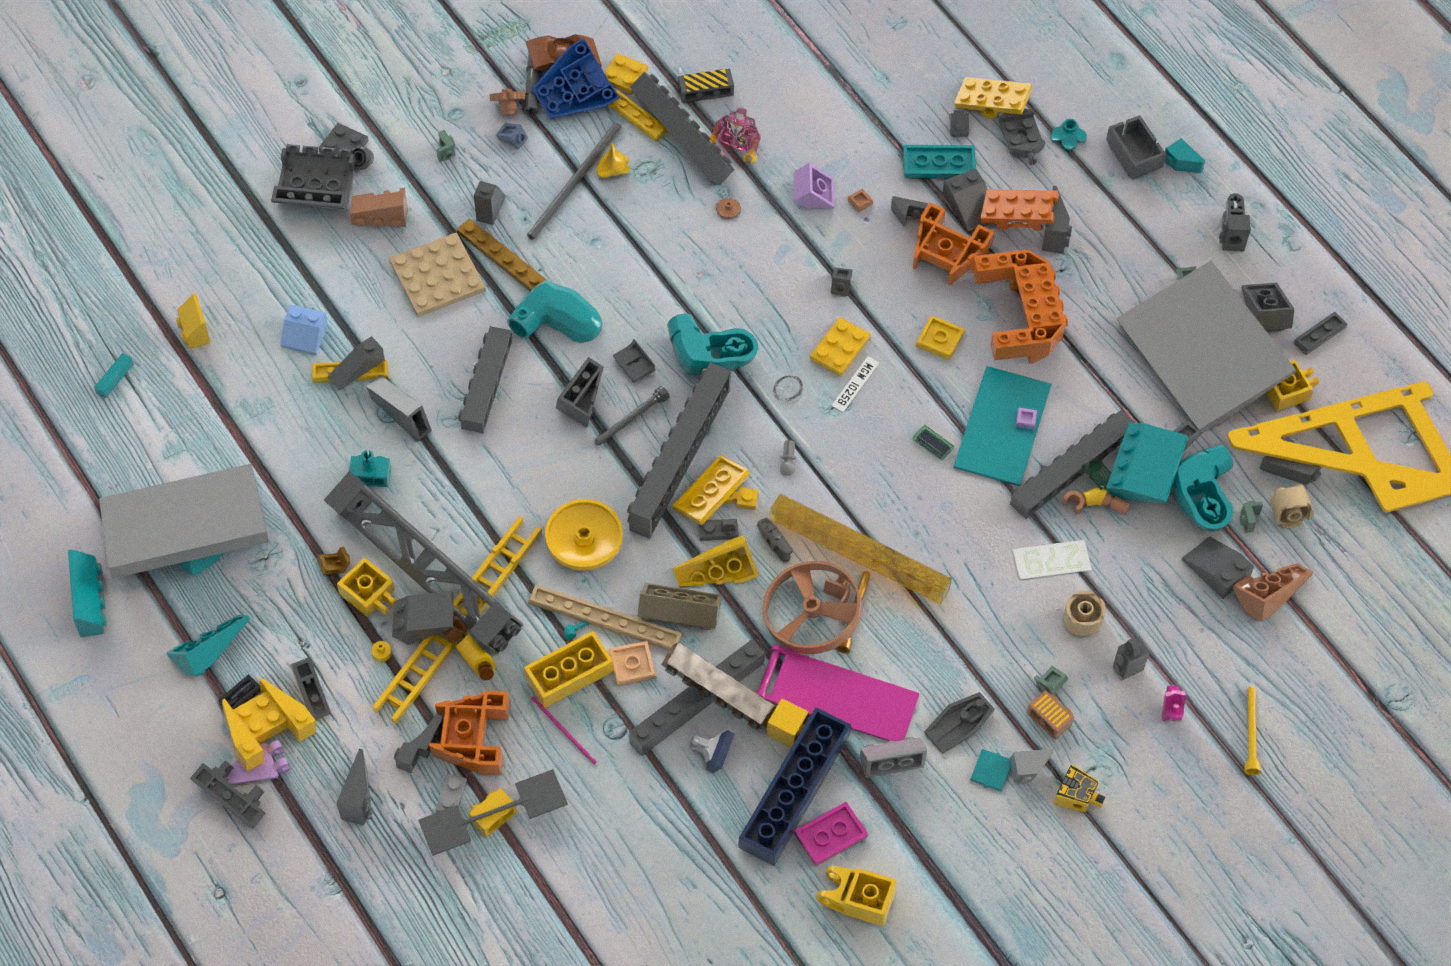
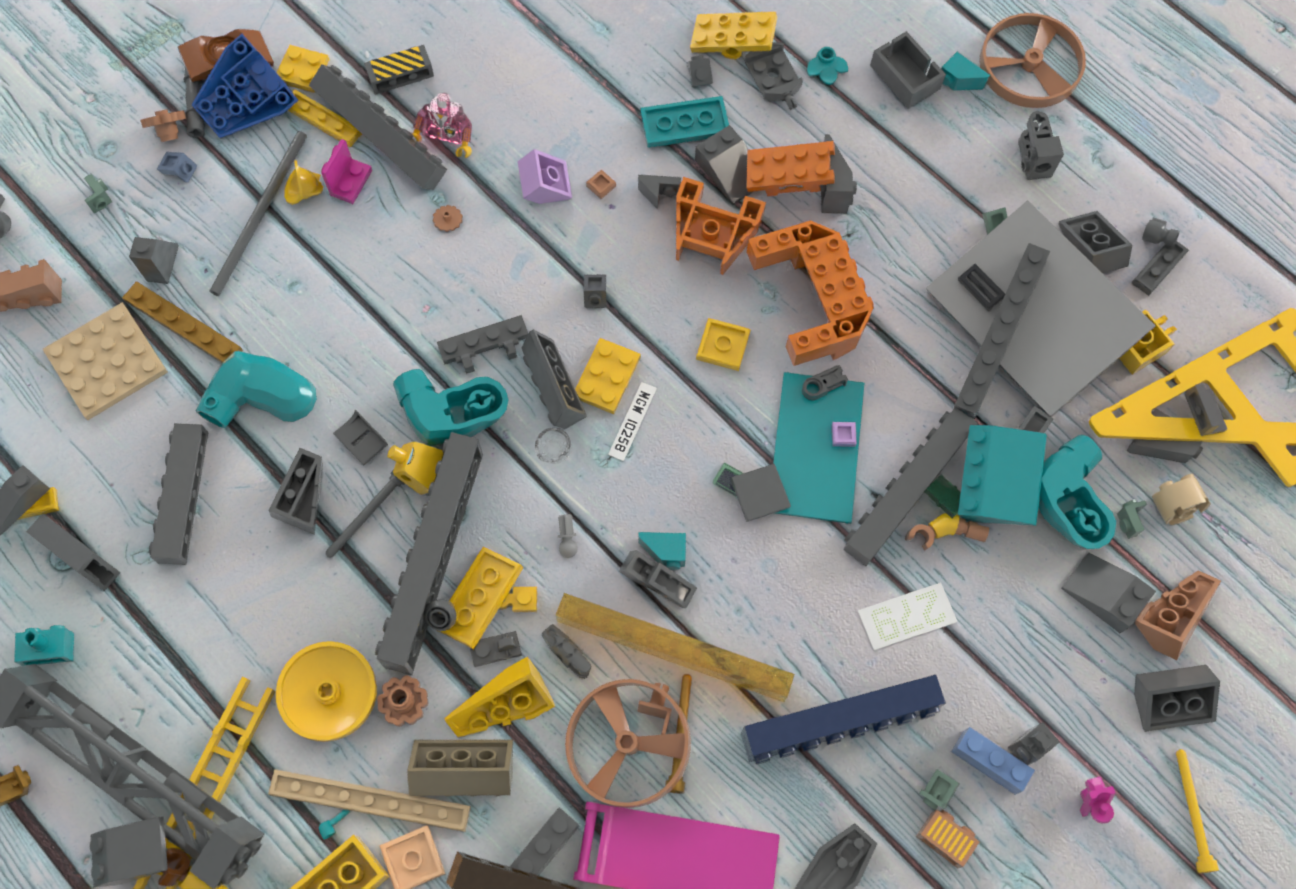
camera: 10 degrees left, 10 degrees up
(367, 588) = (58, 833): yellow hinge -> none
(641, 553) = (411, 709): none -> nougat plant
(649, 162) = (344, 175): none -> dark pink bracket
(676, 385) = (416, 464): none -> yellow torso
(680, 494) = (440, 614): none -> dark grey cone
(731, 306) = (467, 345): none -> dark grey hinge
(795, 340) = (552, 380): none -> dark grey slope
(856, 498) = (658, 578): none -> dark grey slope
(865, 477) = (665, 548): none -> teal slope
(949, 449) = (760, 492): none -> dark grey tile
(983, 616) = (842, 718): none -> dark blue brick
(1019, 377) = (826, 381): none -> dark grey piece
(1084, 613) = (969, 678): tan brick -> none
(1097, 667) = (993, 761): none -> medium blue brick
(1169, 334) = (994, 301): none -> black tile
(1170, 356) = (1002, 330): none -> dark grey brick
(1256, 648) = (1177, 697): none -> dark grey slope
(1262, 178) = (1052, 82): none -> nougat piece
(1323, 305) = (1156, 232): none -> dark grey piece
(1326, 442) = (1205, 410): none -> dark grey panel

